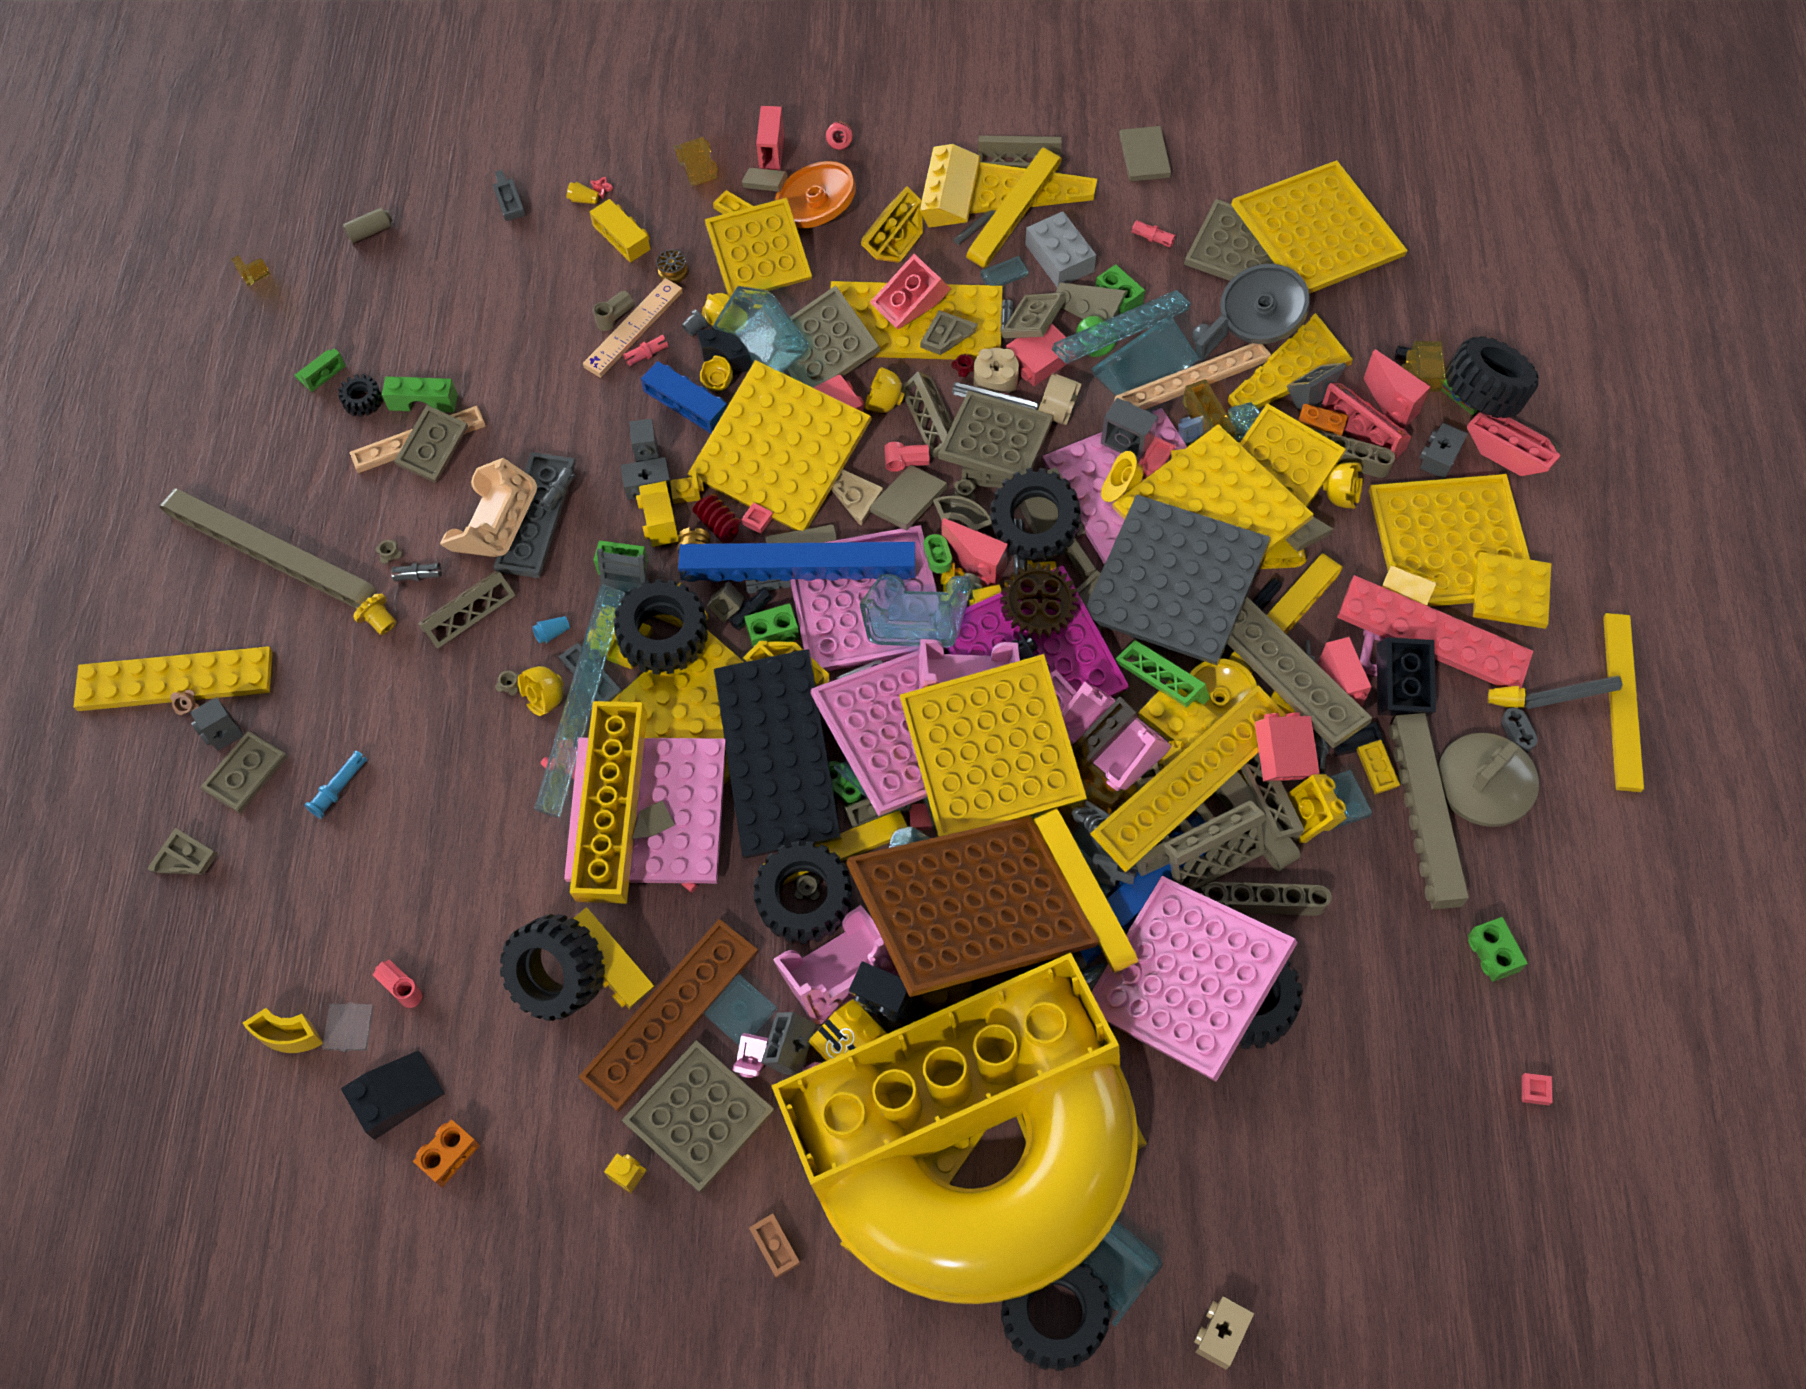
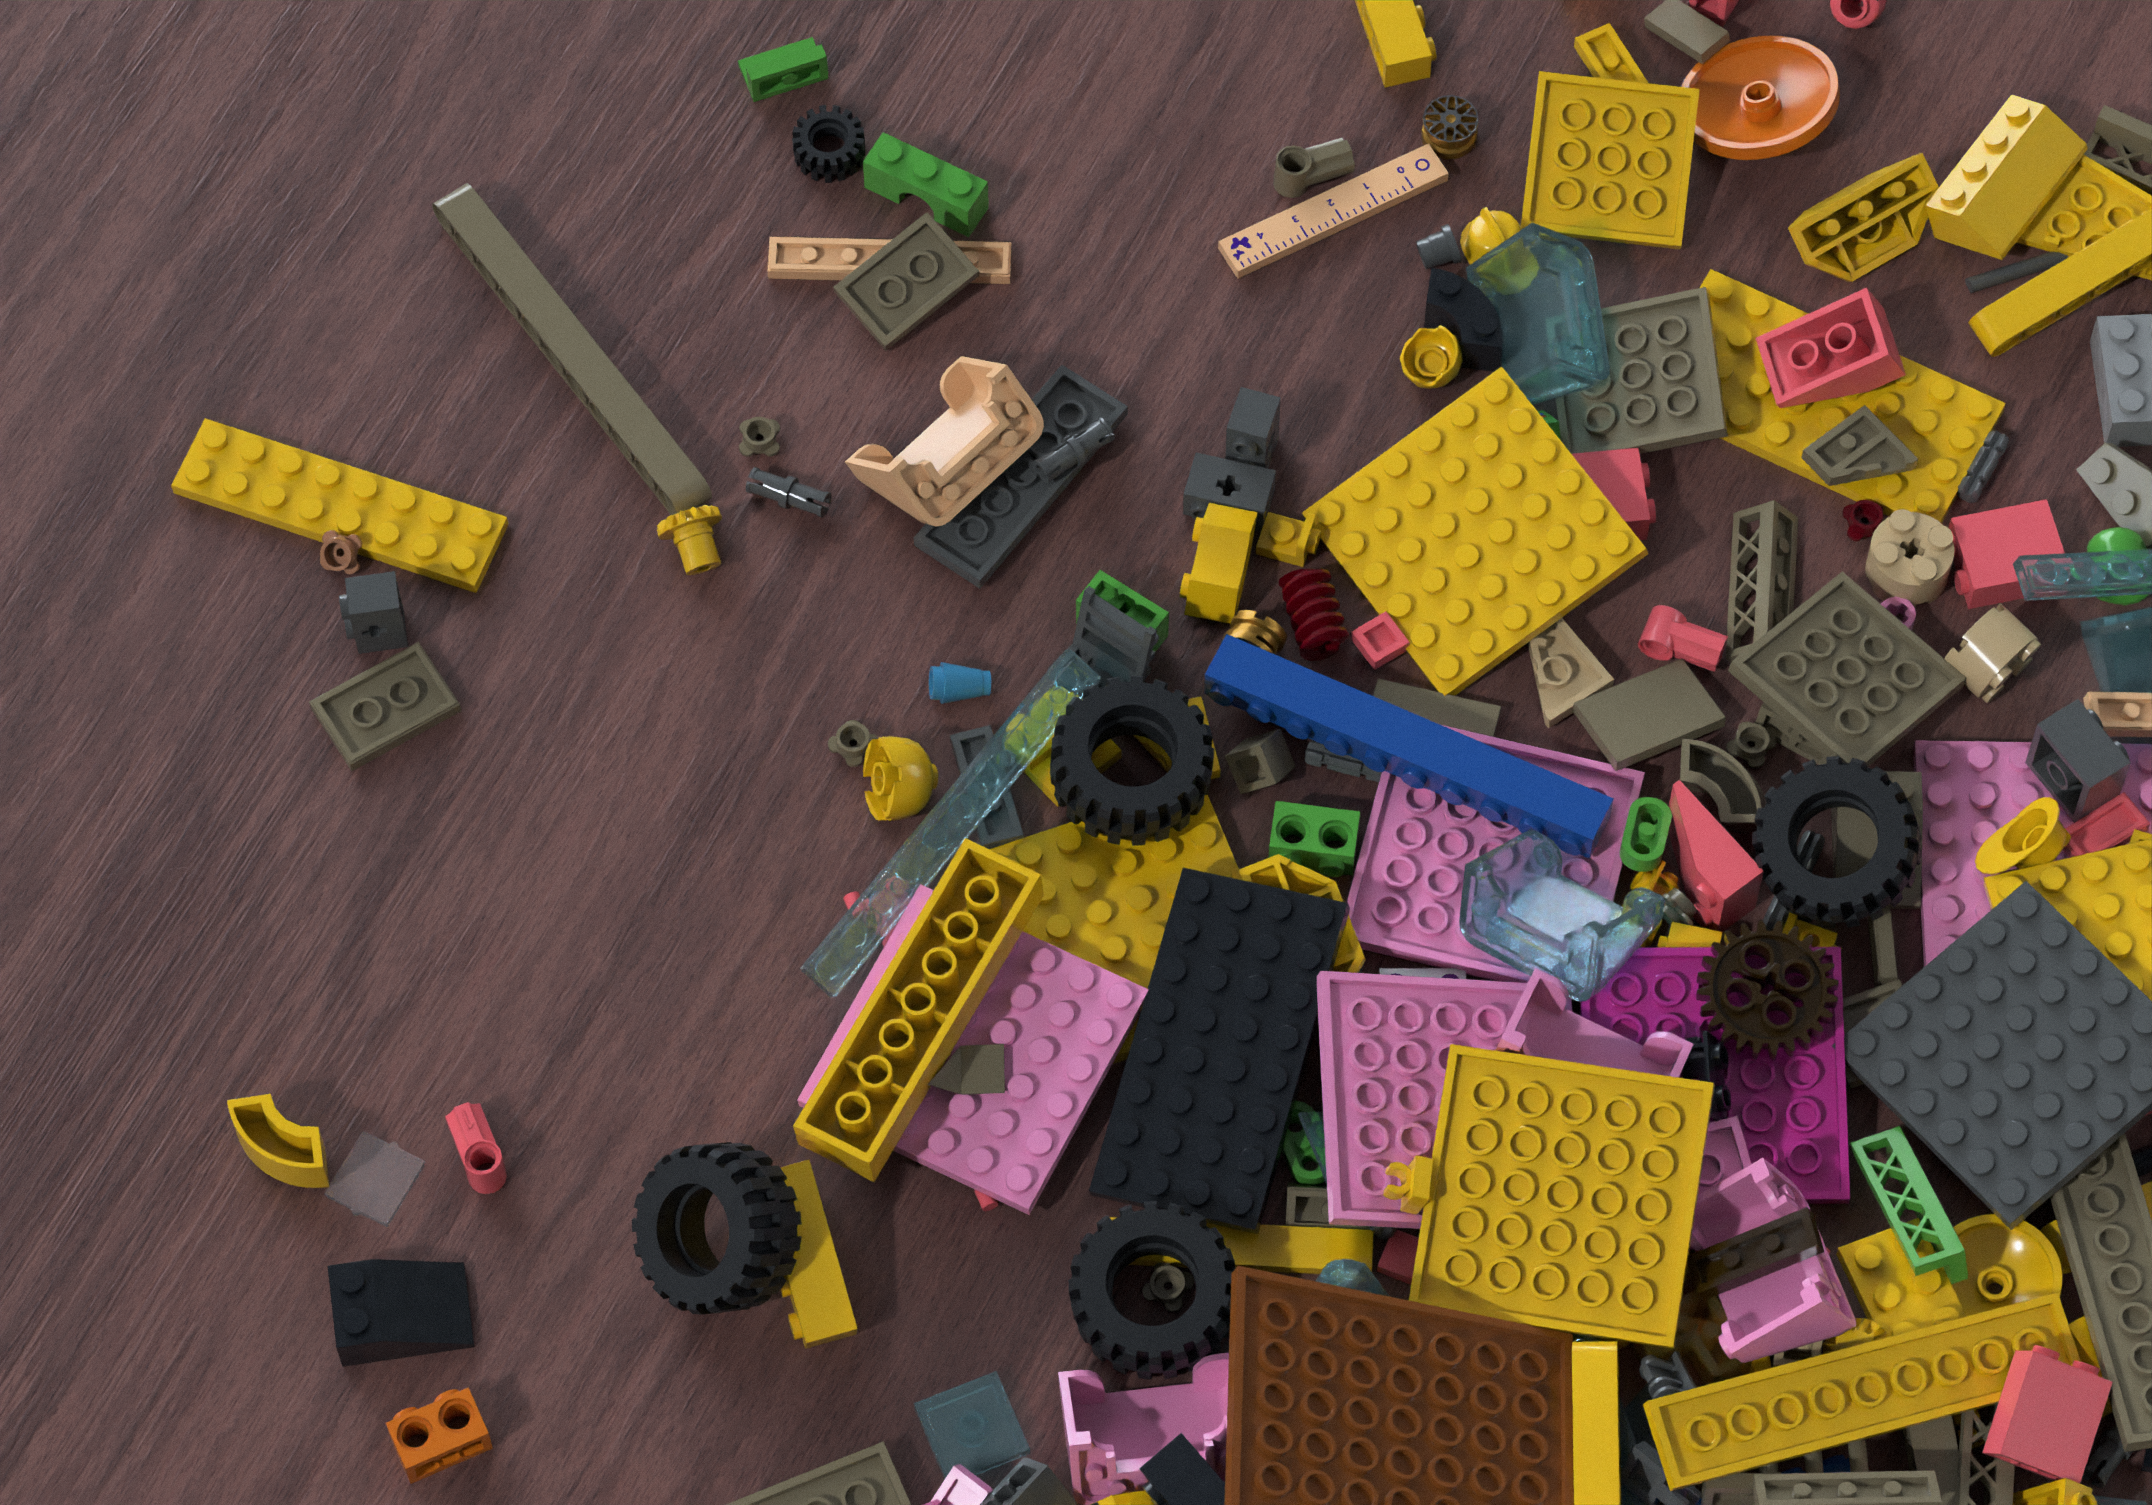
camera: 25 degrees right, 0 degrees up
(182, 856) = (240, 800): dark tan wing -> none
(329, 793) = (498, 799): dark azure pin -> none
(460, 602) = (835, 575): dark tan fence -> none
(646, 350) = (1334, 262): coral pin -> none
(667, 1015) = (861, 1383): dark orange plate -> none
(683, 396) = (1359, 373): blue brick -> none
(750, 607) = (1295, 790): black pin -> none
(884, 392) = (1700, 512): yellow cylinder -> none
(913, 774) = (1414, 1183): none -> yellow tile
(961, 389) = (1833, 563): axle -> none
(1004, 272) = (2024, 379): clear light blue tile -> none
(1033, 315) = (2027, 483): dark tan tile -> none

